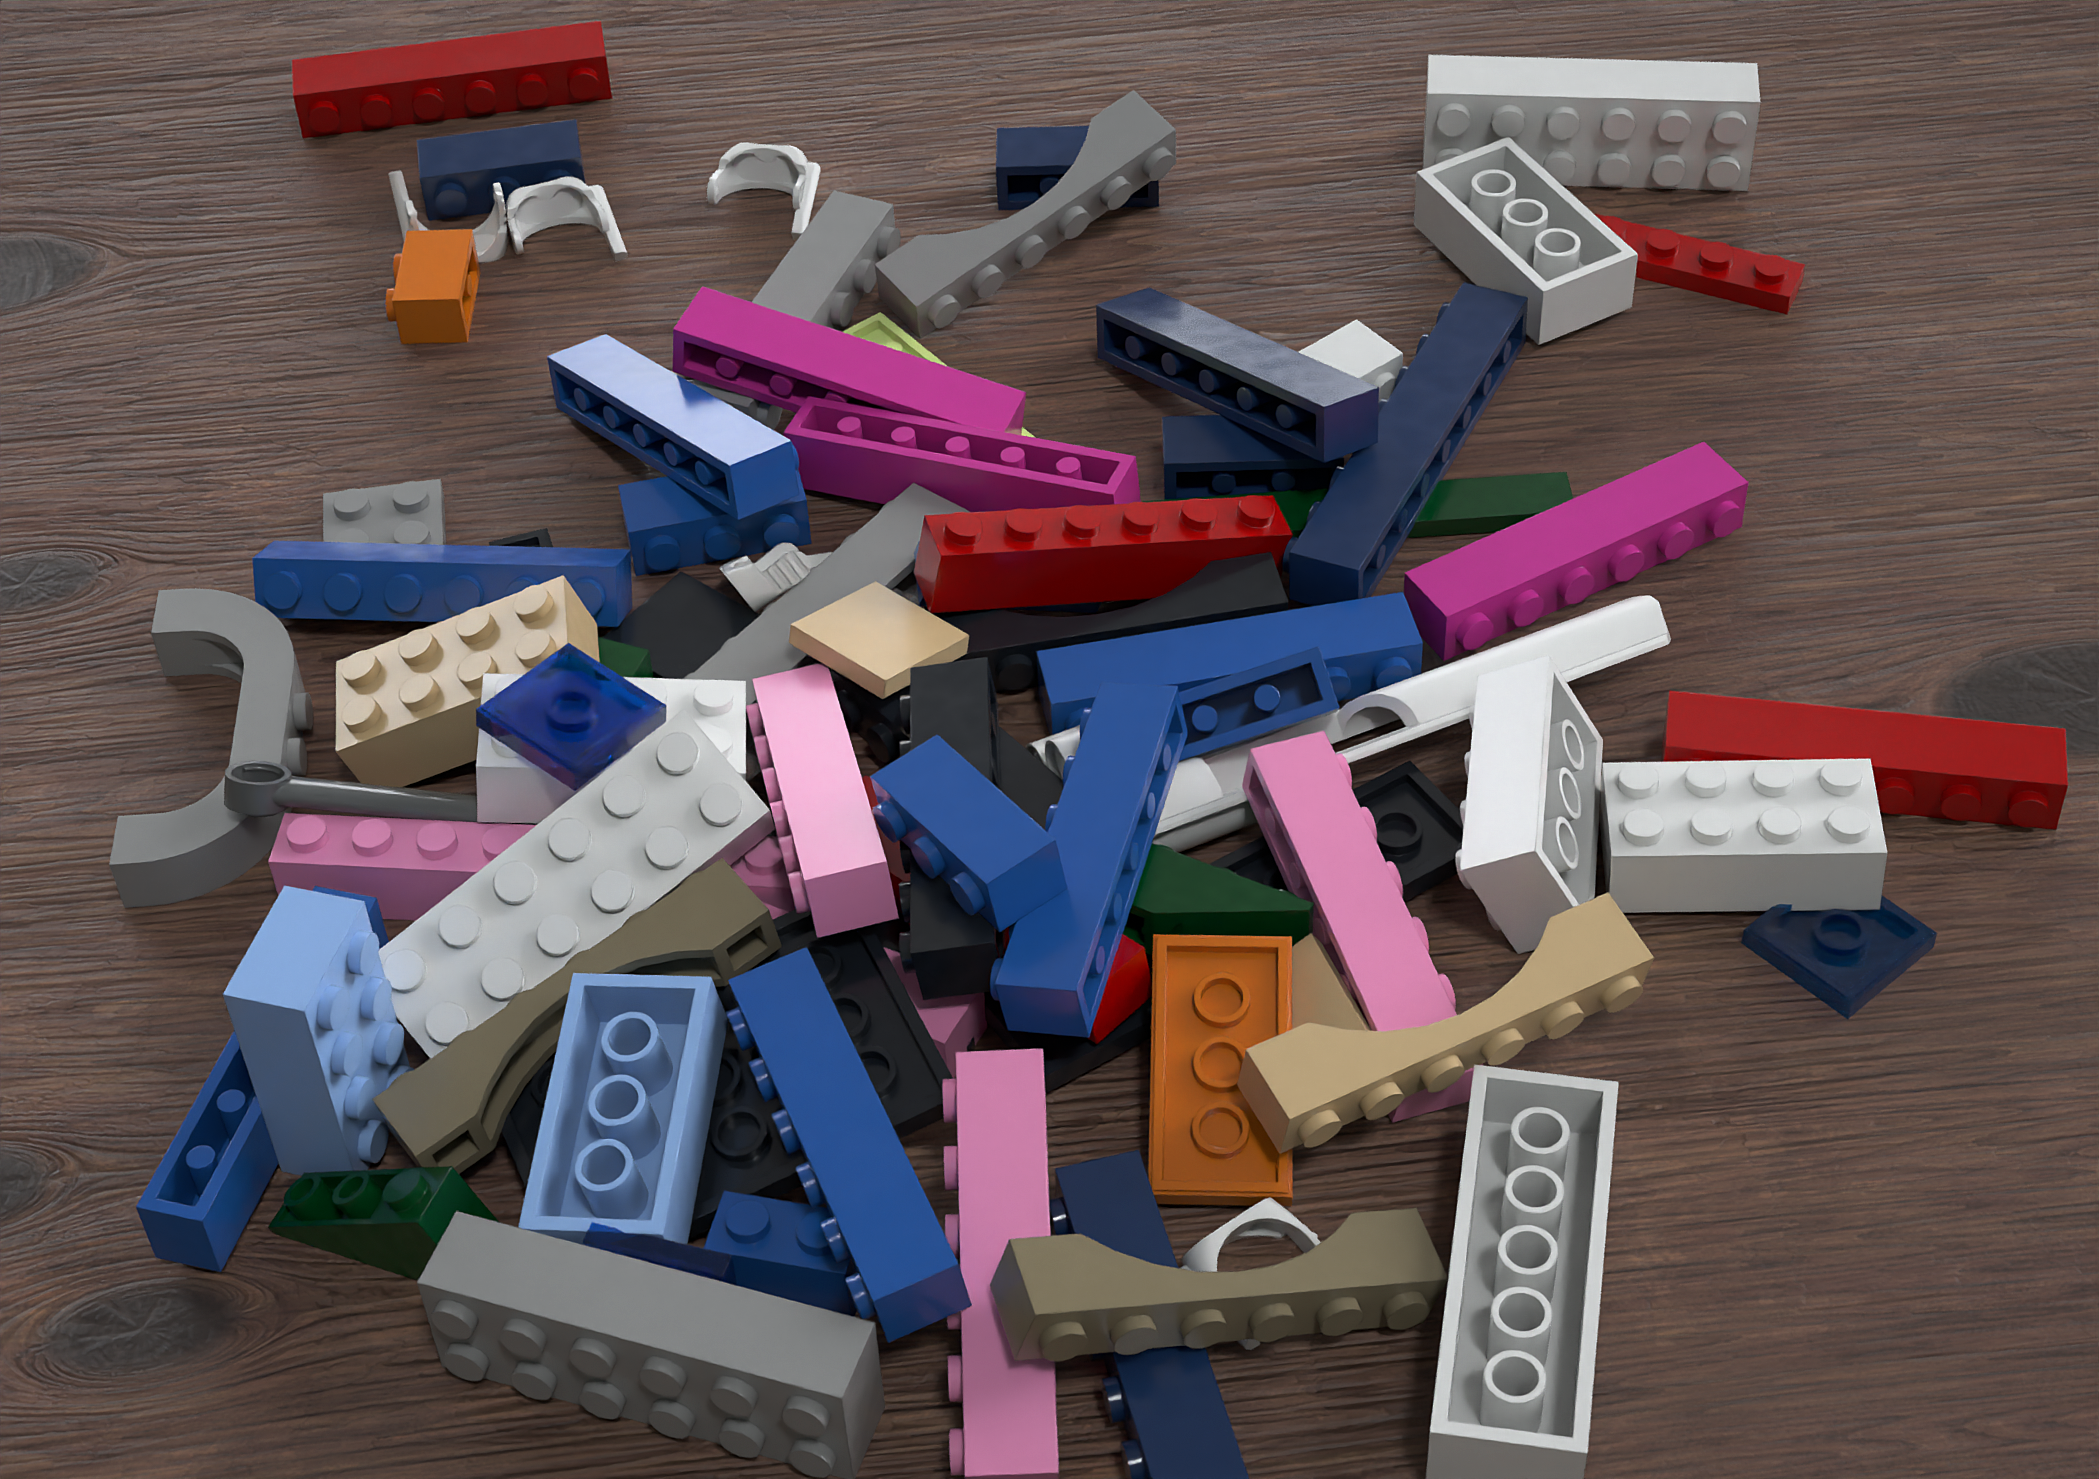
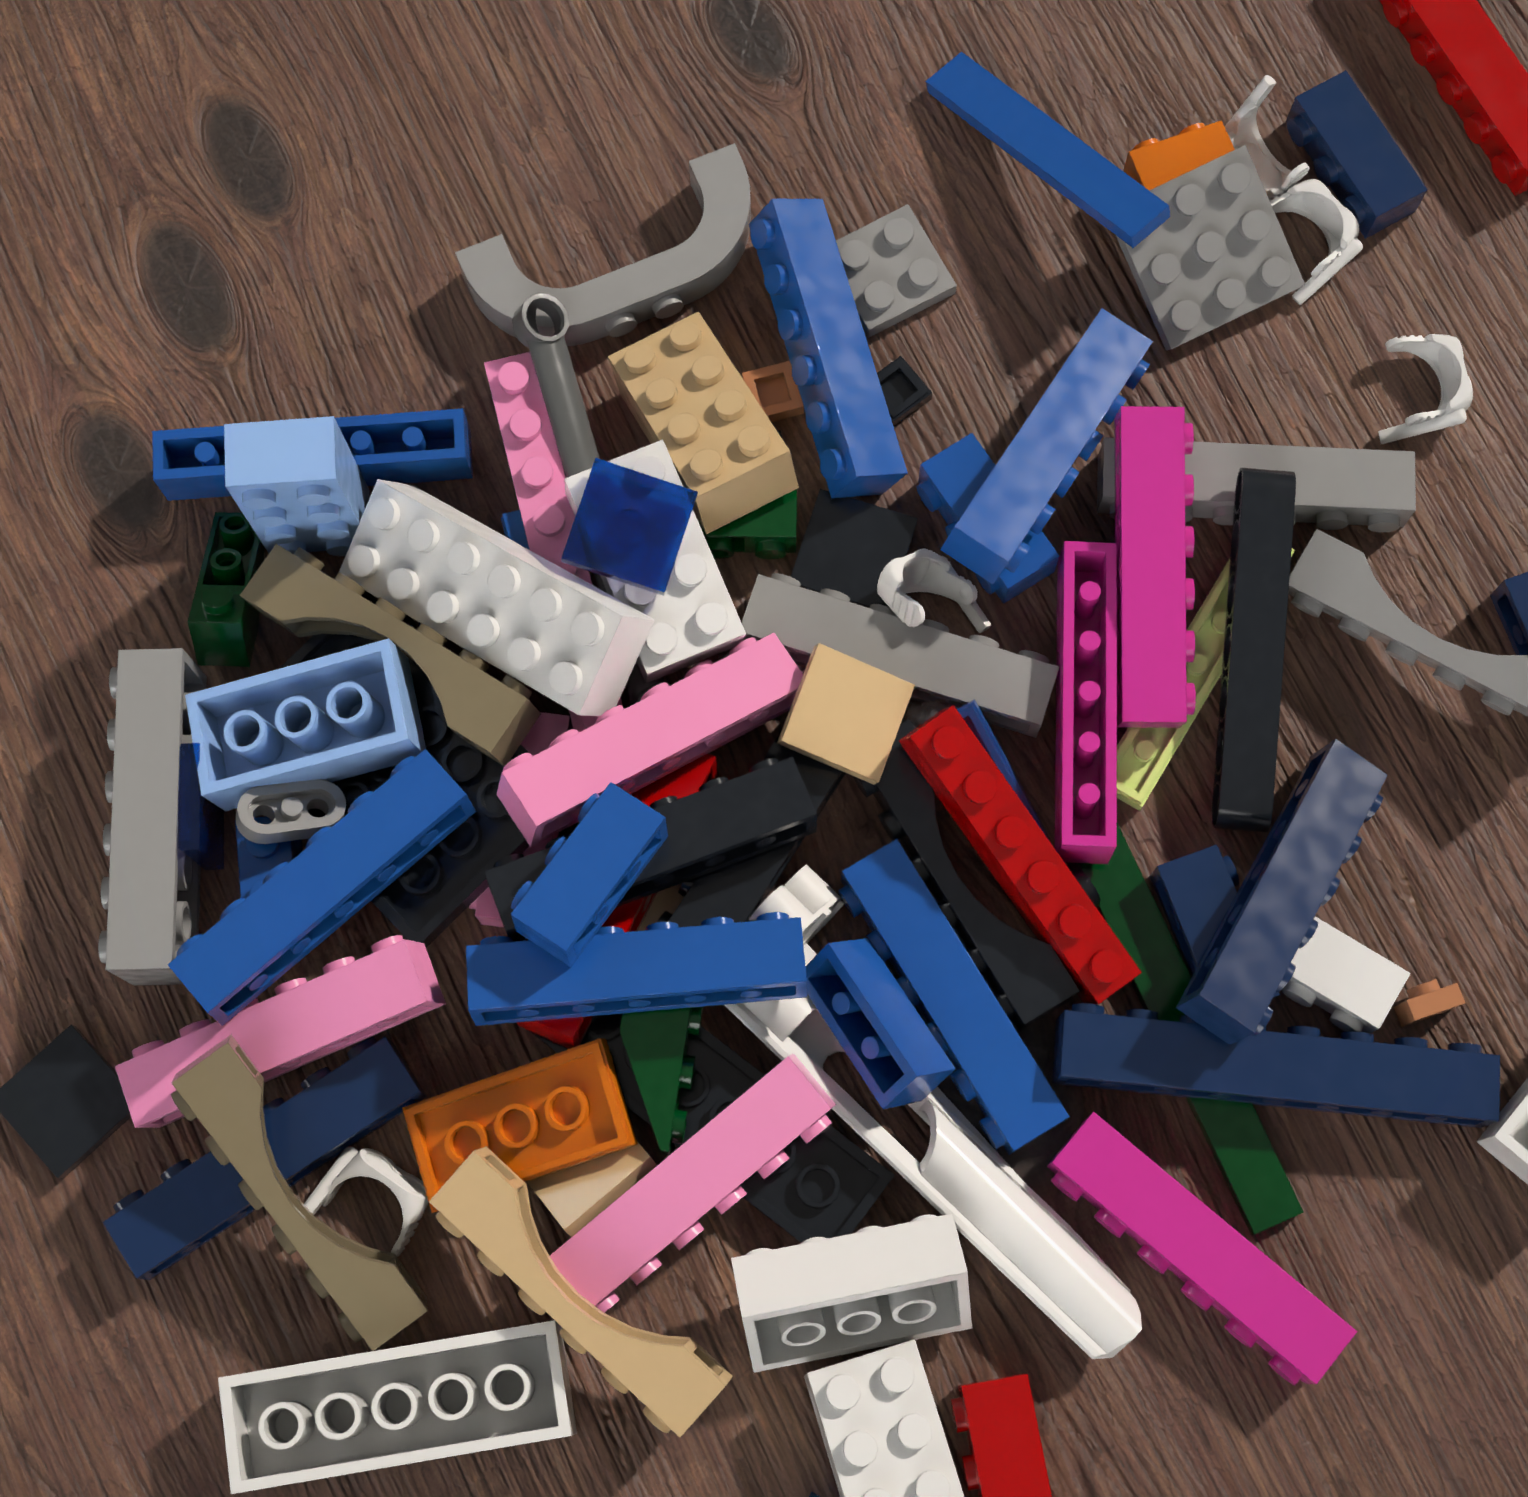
camera: 70 degrees right, 30 degrees up
(343, 355) = (1048, 150): none -> blue tile
(527, 279) = (1215, 251): none -> light grey plate
(727, 1168) = (288, 809): none -> light grey plate
(946, 329) = (1253, 650): none -> black beam
(1390, 319) = (1428, 1001): none -> nougat plate

